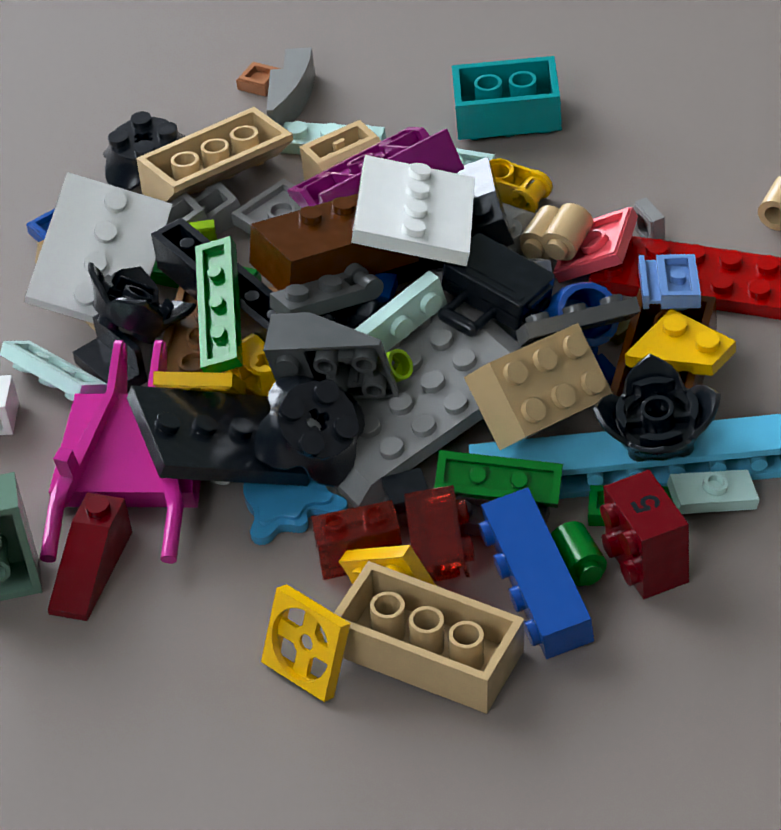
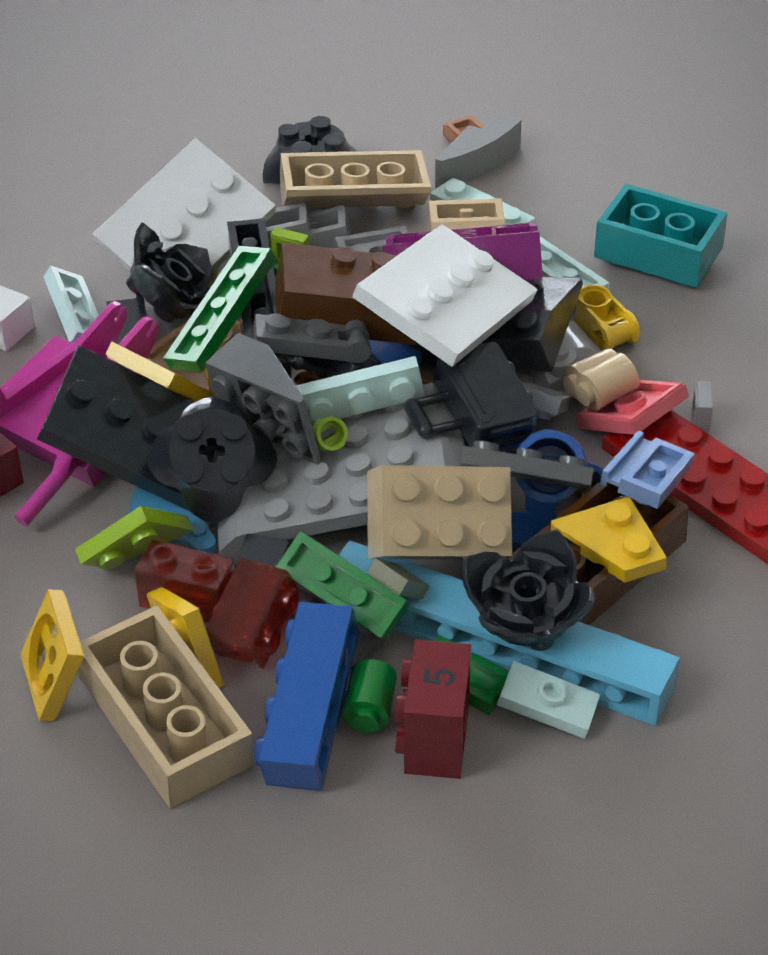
camera: 25 degrees right, 0 degrees up
(287, 522) = (132, 536): none -> lime wing
(541, 452) = (398, 579): none -> olive tile

